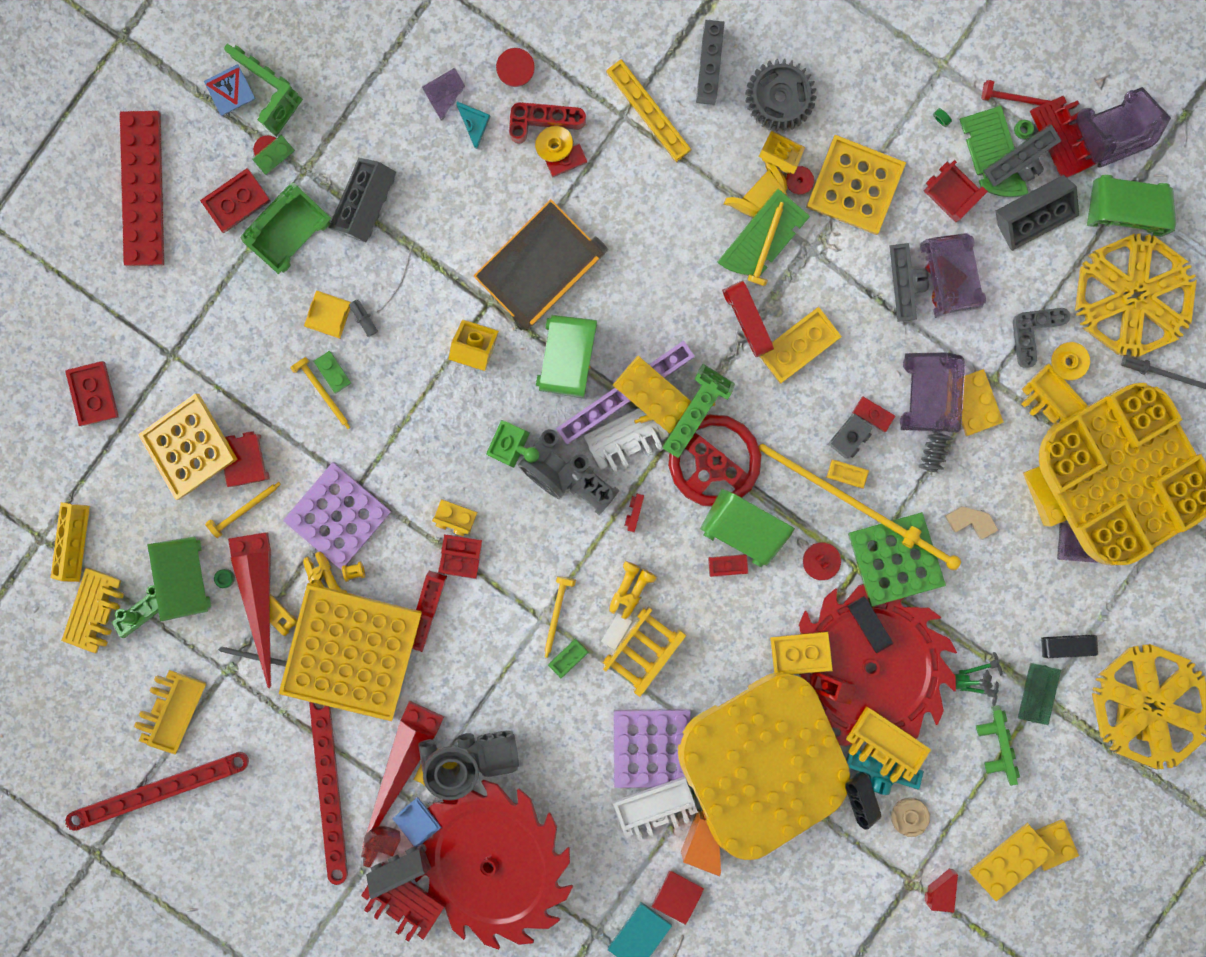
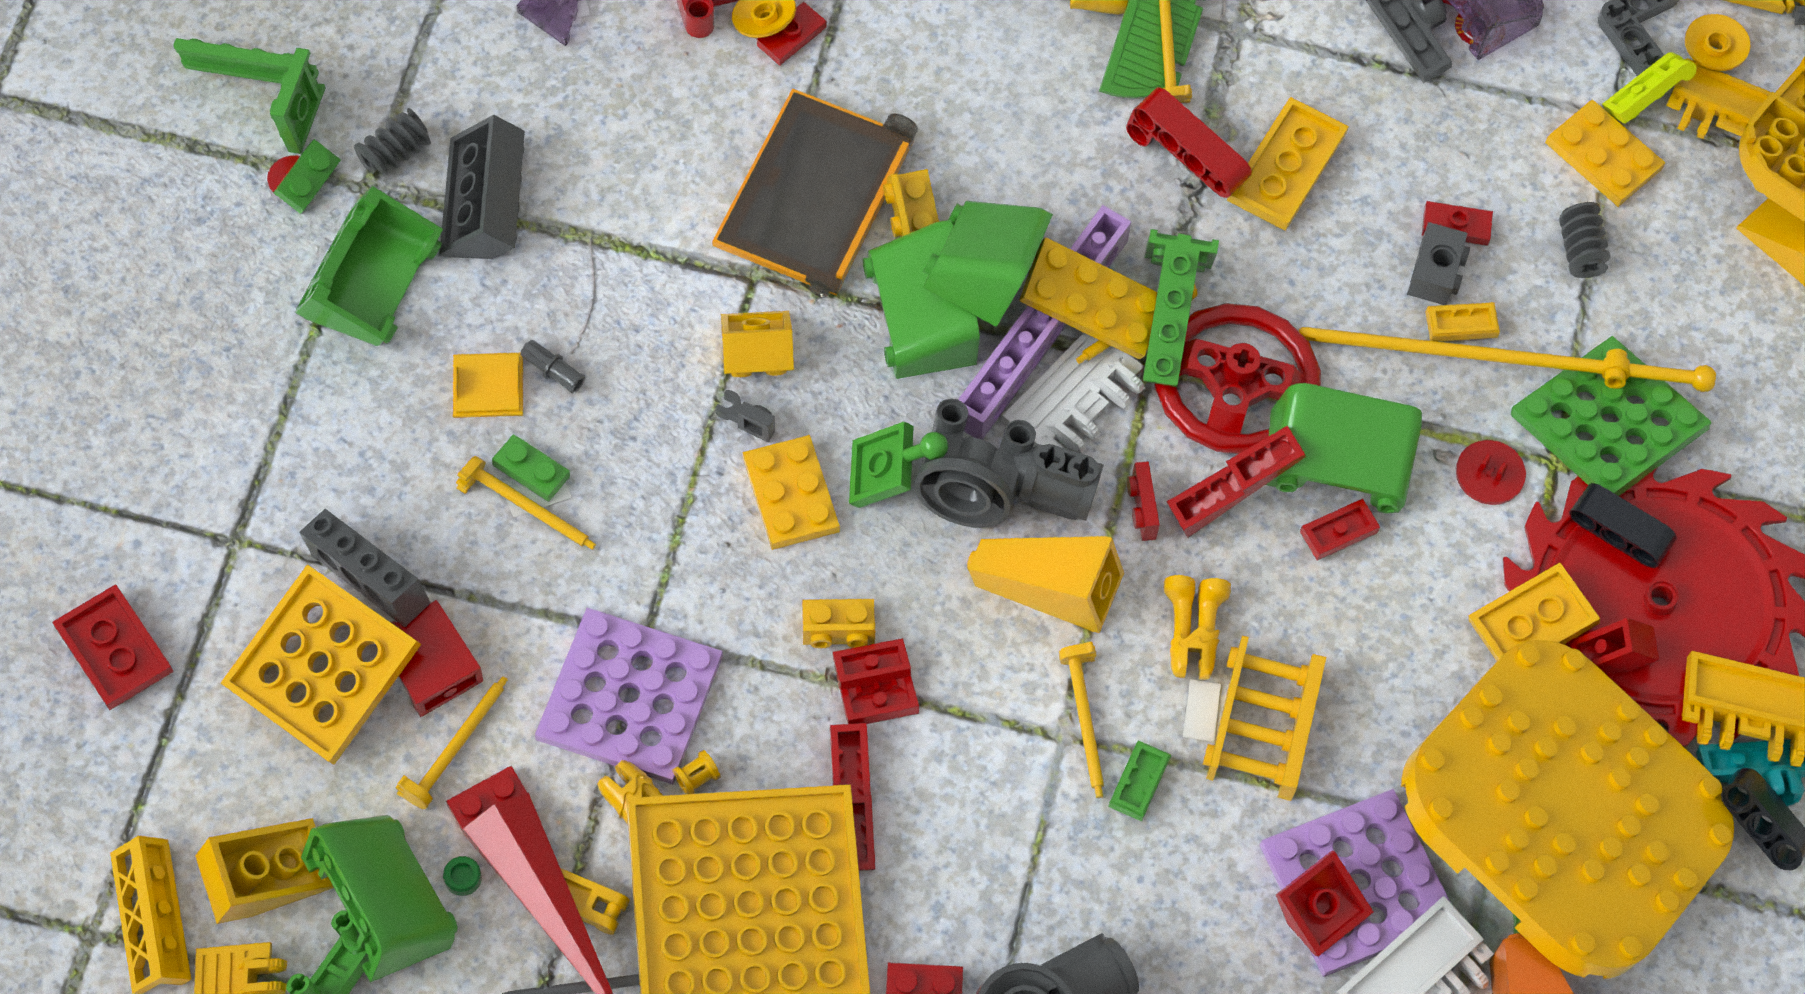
camera: 25 degrees left, 25 degrees down
(127, 540) = (258, 870): none -> yellow slope
(142, 188) = (97, 303): red plate -> none
(225, 403) = (365, 567): none -> dark grey brick
(229, 90) = (200, 107): medium blue piece -> none
(235, 200) = (266, 263): red plate -> none
(325, 153) = (392, 142): none -> dark grey piece
(456, 390) = (751, 419): none -> dark grey plate
(459, 436) = (791, 492): none -> yellow plate
(474, 121) = (620, 27): teal tile -> none
(572, 540) = (1053, 575): none -> yellow slope
(586, 297) = (911, 201): none -> yellow bracket
(607, 352) = (986, 256): none -> bright green windscreen
(626, 760) = (1323, 904): none -> red slope
(683, 525) = (1237, 481): none -> red slope
(935, 392) = (1532, 149): clear purple windscreen -> none
(979, 520) = (1708, 317): tan tile -> none
(1017, 376) = (1649, 86): none -> neon yellow plate

